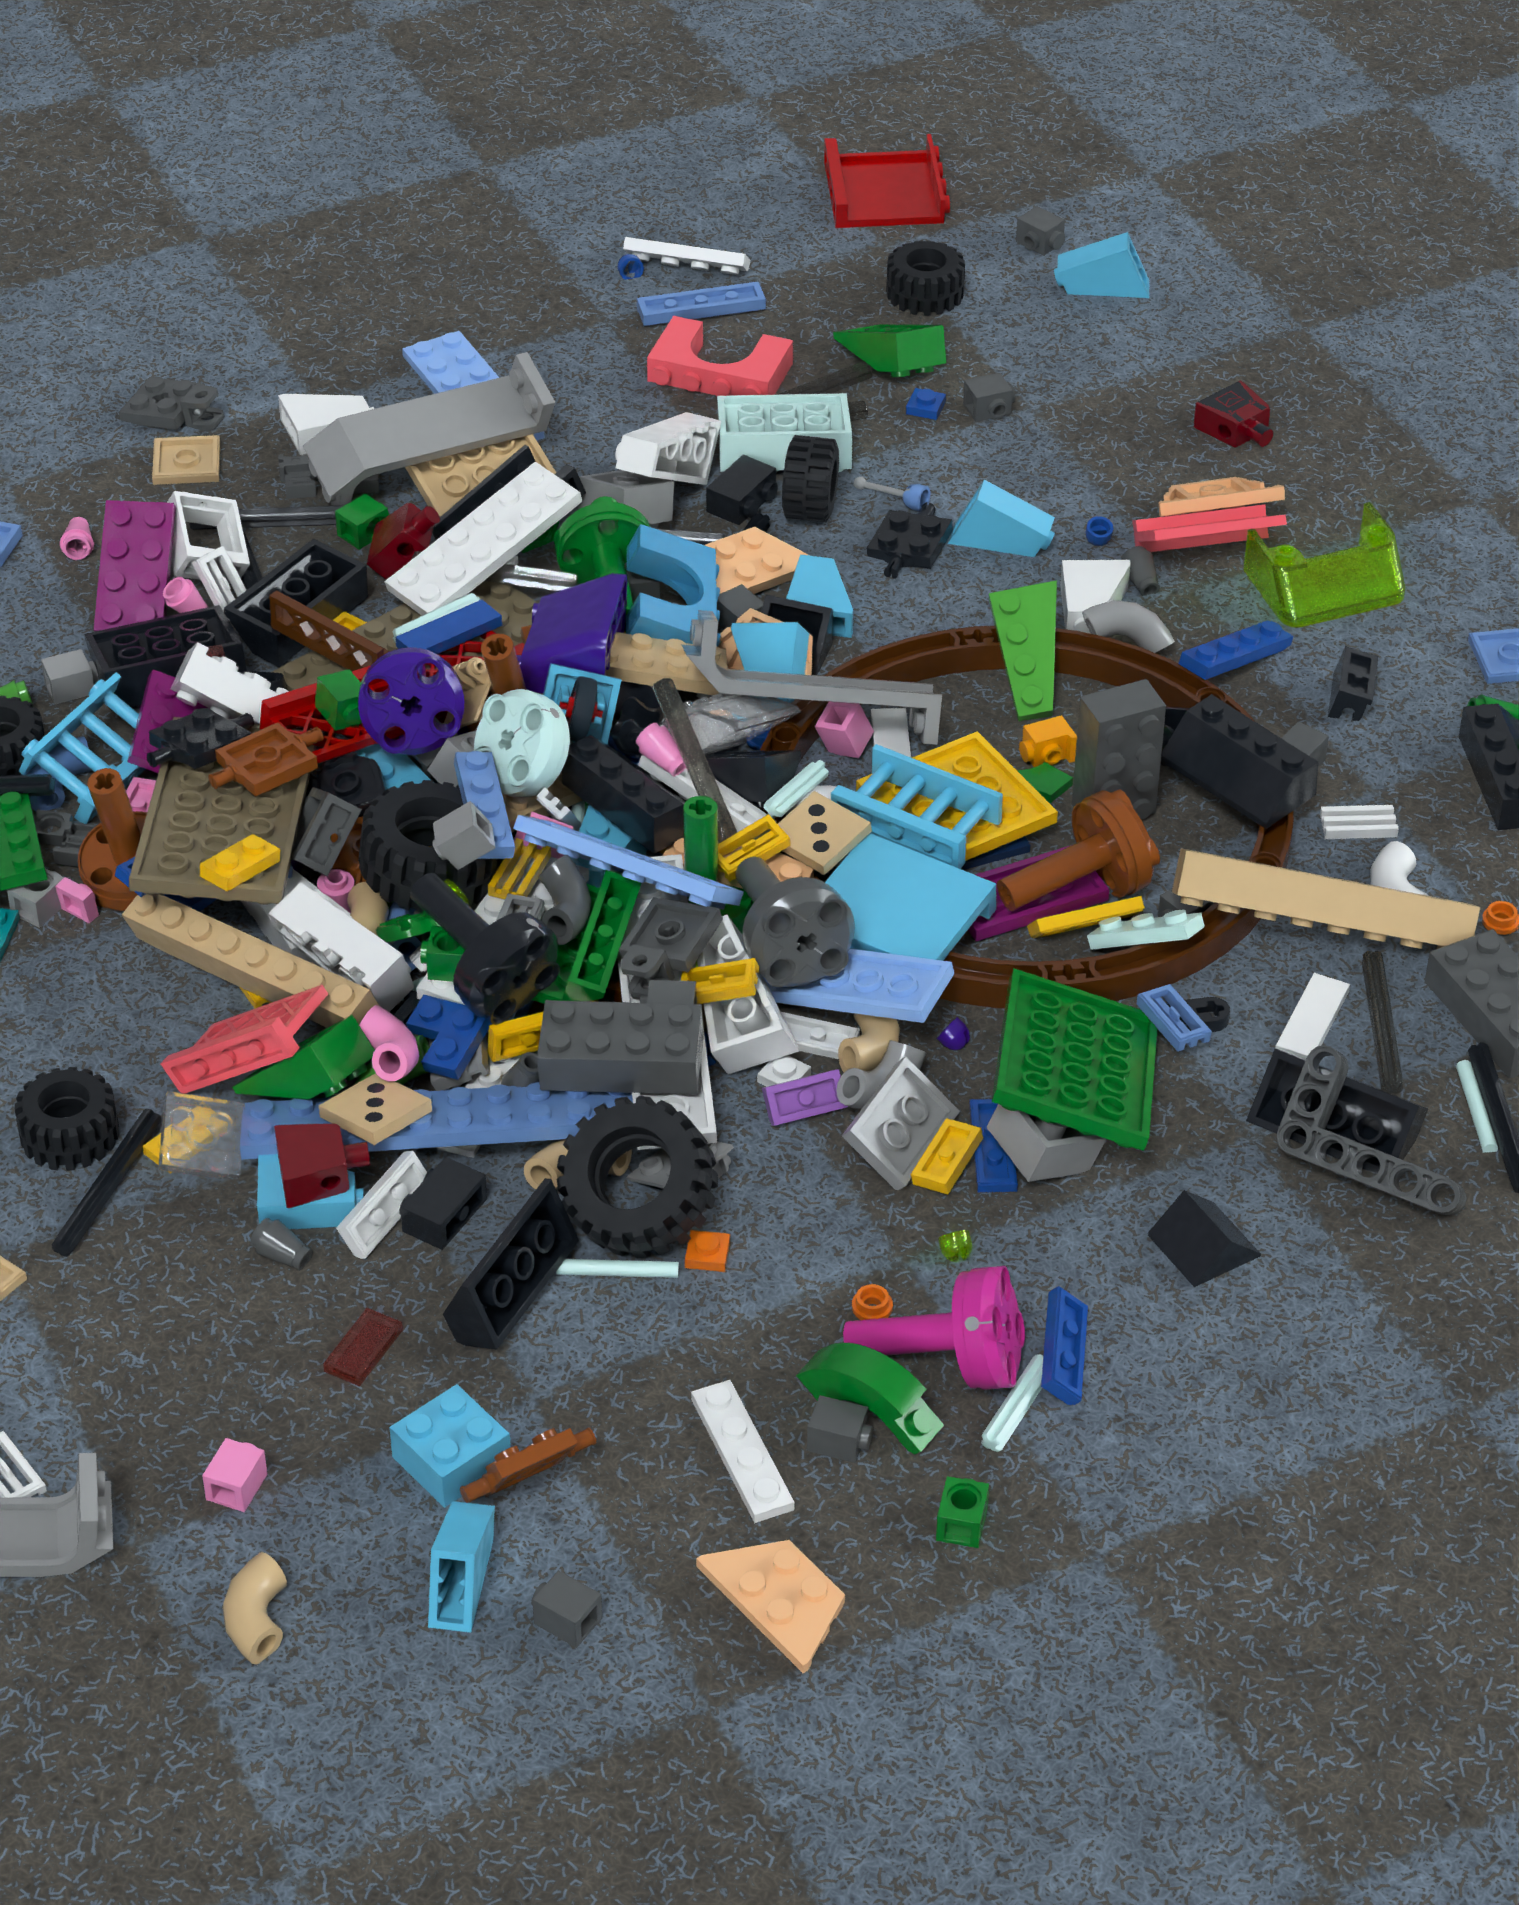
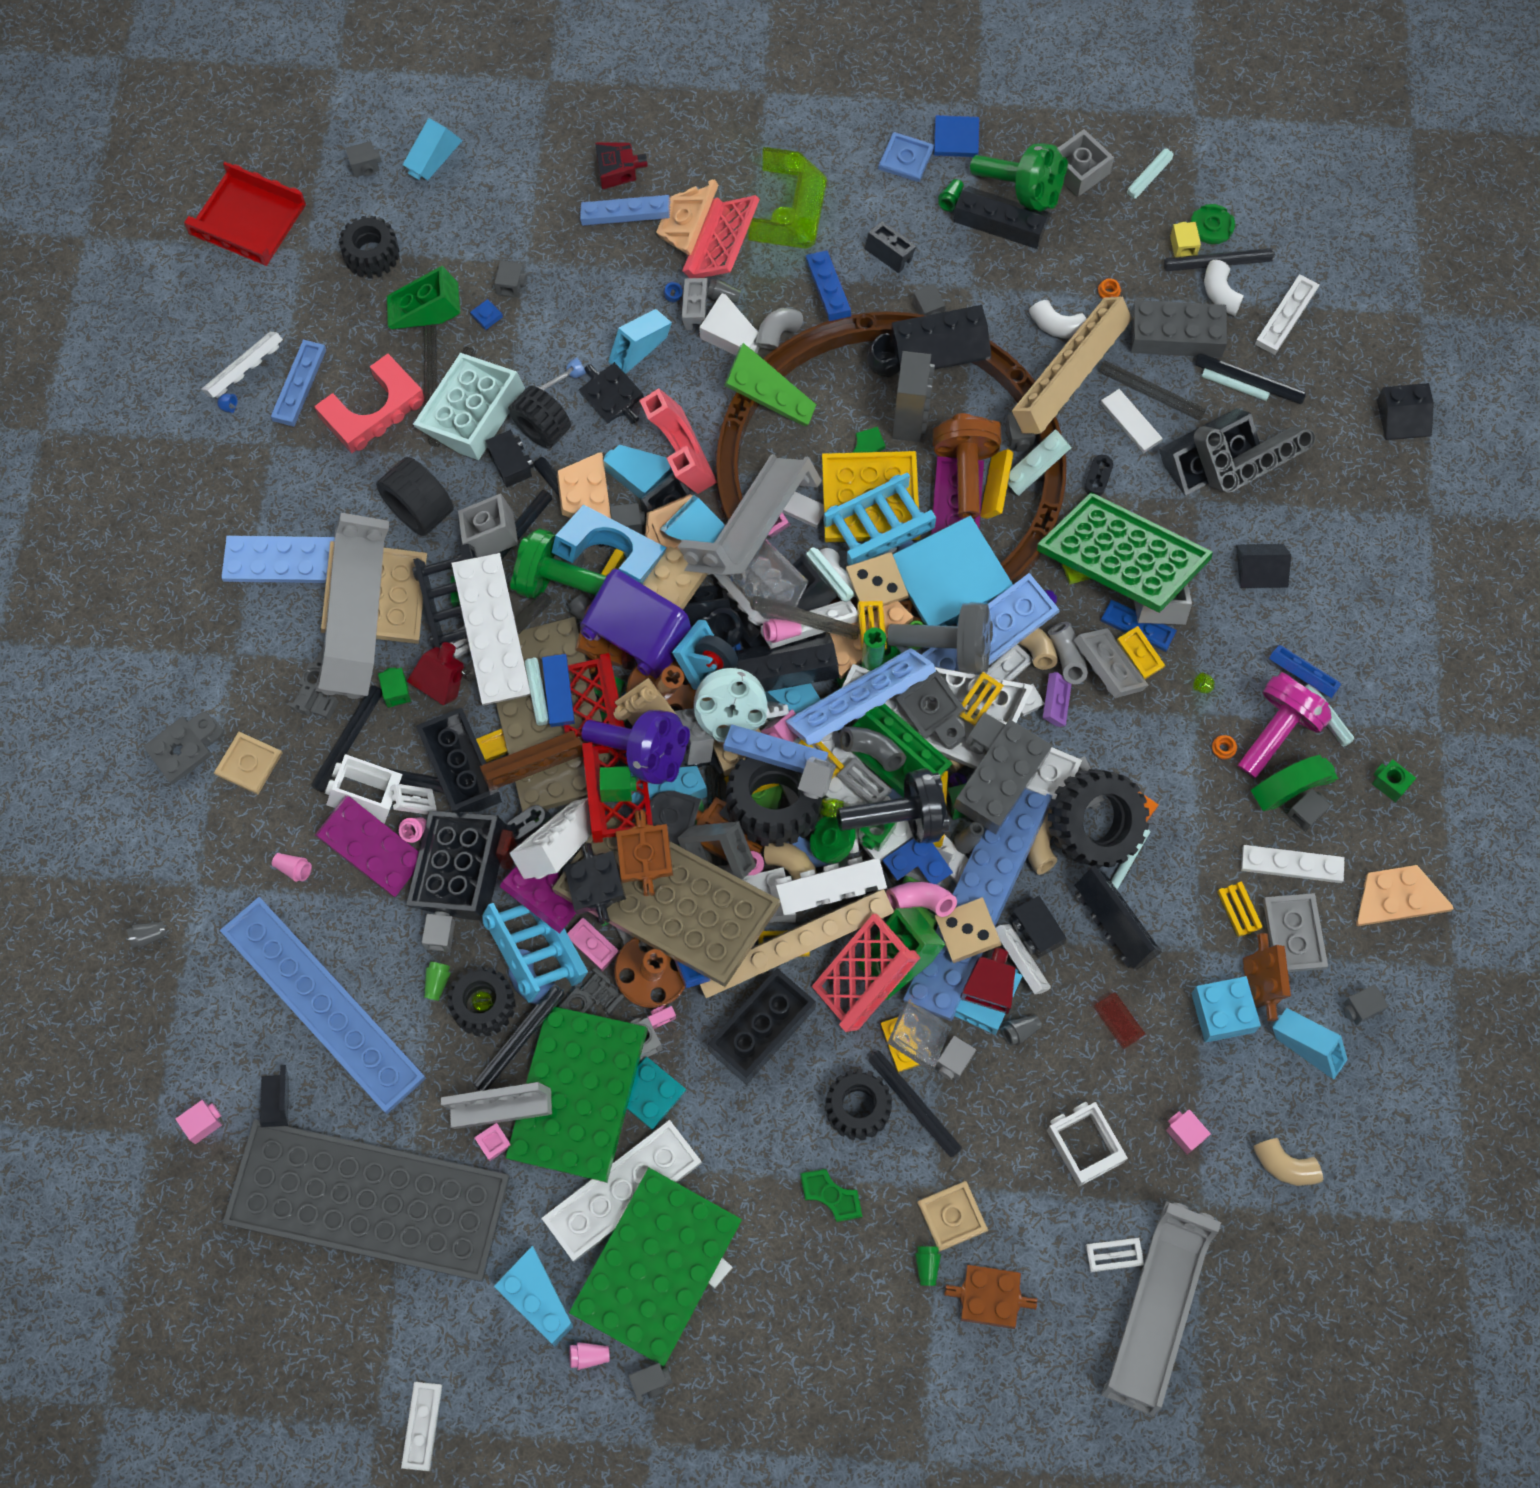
camera: 60 degrees left, 25 degrees up
(119, 986) = (761, 1026): none -> black brick
(149, 1411) = (1080, 1112): none -> white window
(193, 1191) = (955, 1059): none -> light grey brick
(239, 862) = (743, 912): yellow plate -> none
(309, 414) = (271, 661): white slope -> none
(607, 410) = (415, 496): none -> black tyre
(629, 1488) = (1296, 925): none -> light grey plate
(647, 1395) = (1248, 904): none -> yellow tile
(671, 449) = (470, 480): white wedge -> none
(907, 596) = (688, 460): none -> coral arch
(1048, 742) = (844, 422): light orange brick -> none
(1098, 543) = (694, 301): none -> light grey hinge
(1167, 1018) = (1104, 489): medium blue tile -> none
(1177, 448) = (625, 210): none -> medium blue plate
(1359, 821) = (1002, 295): white tile -> none

